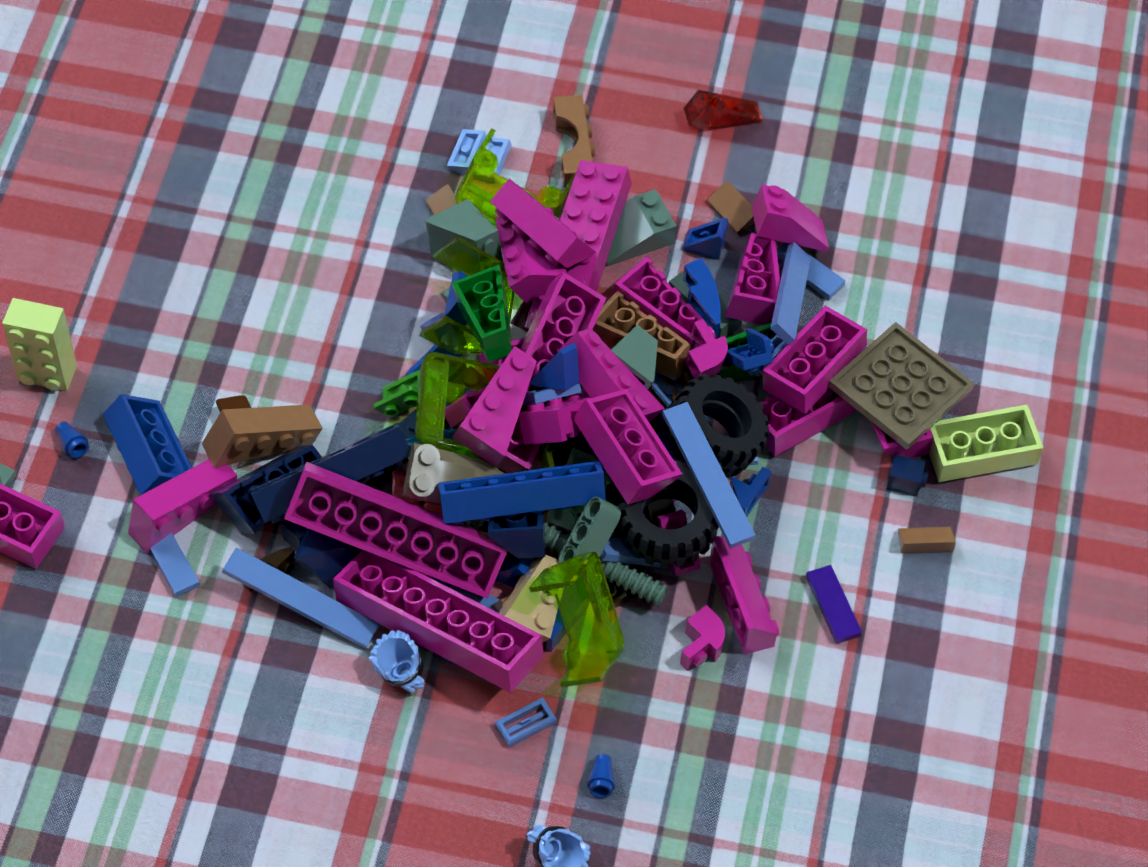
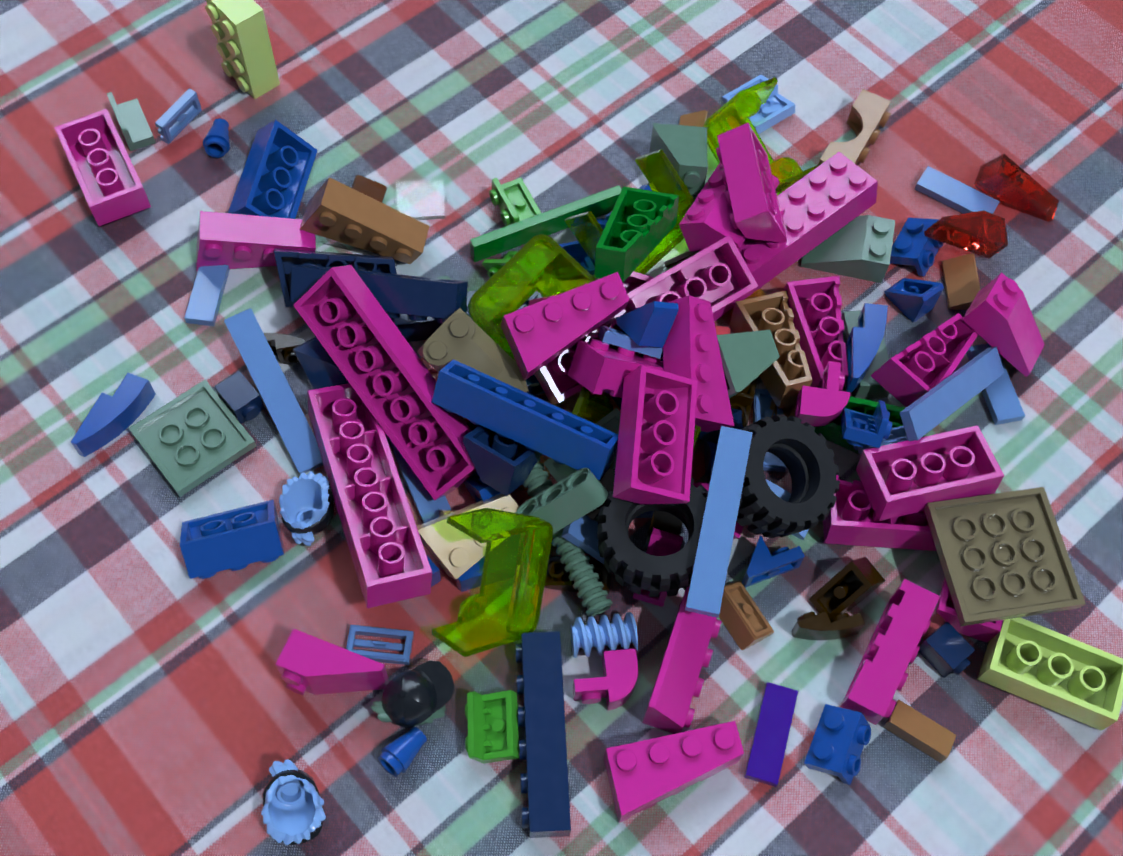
camera: 35 degrees right, 5 degrees up
(23, 441) = (178, 116): none -> medium blue tile
(188, 693) = (113, 414): none -> blue slope
(263, 673) = (192, 437): none -> sand green plate
(275, 622) = (240, 397): none -> dark blue brick
(277, 388) = (421, 199): none -> clear piece
(359, 348) = (513, 200): none -> bright green bracket
(360, 720) = (231, 540): none -> blue slope
(394, 348) = (544, 223): none -> green tile
(509, 753) = (326, 668): none -> dark pink slope
(583, 733) = (416, 696): none -> black hair
(650, 719) = (492, 726): none -> bright green bracket
(675, 610) = (603, 634): none -> light blue piece
(680, 141) = (954, 193): none -> medium blue tile
(681, 196) = (914, 247): none -> blue bracket
(687, 701) = (544, 735): none -> dark blue brick
(717, 164) = (974, 232): none -> clear red slope
(765, 545) = (743, 616): none -> medium nougat slope
(782, 667) = (666, 765): none -> dark pink wedge
(813, 477) = (847, 588): none -> dark brown slope
(816, 512) = (821, 628): none -> dark brown slope
(871, 498) = (890, 652): none -> dark pink wedge
(880, 580) = (839, 743): none -> blue bracket

